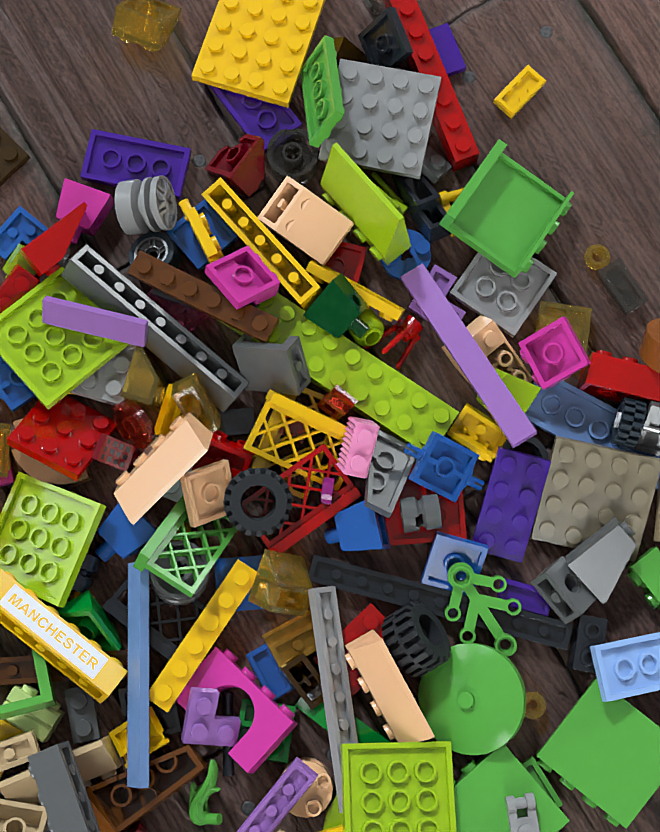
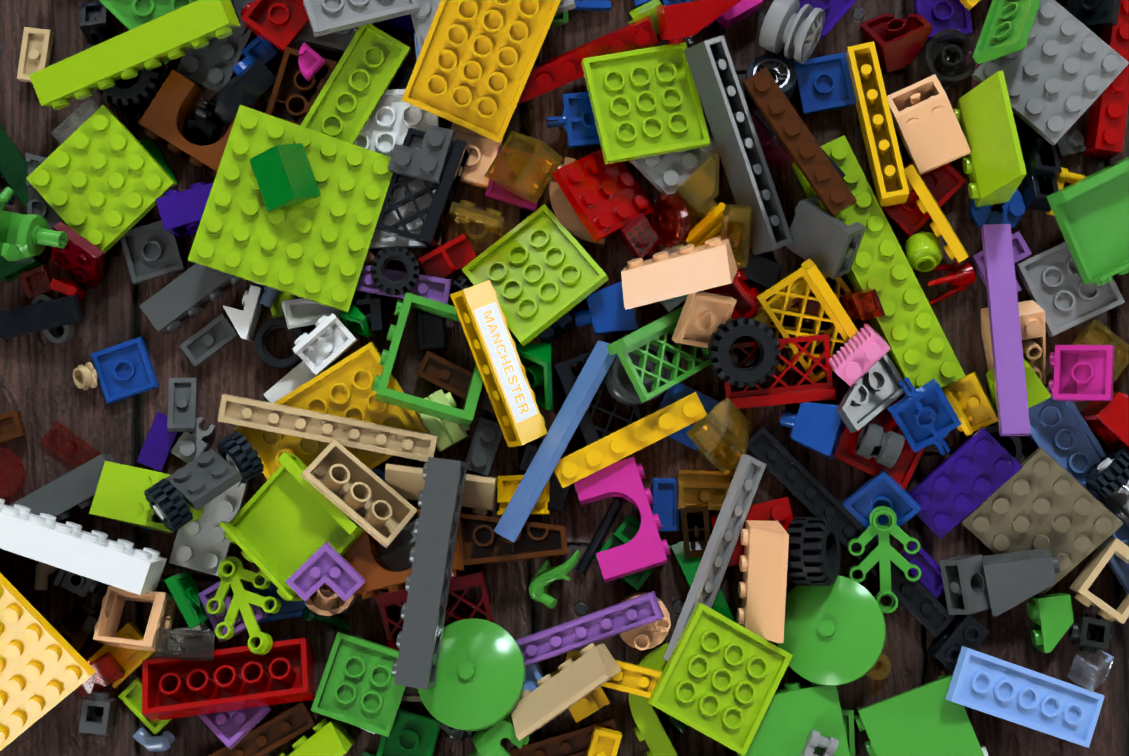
camera: 30 degrees right, 5 degrees up
(94, 321) = (691, 109): medium lavender tile -> none
(201, 723) = (586, 517): medium lavender plate -> none
(202, 231) = (828, 96): yellow plate -> none
(243, 278) = (846, 146): dark pink plate -> none
(327, 490) = (809, 378): magenta tile -> none
(339, 309) = (913, 223): dark green torso -> none

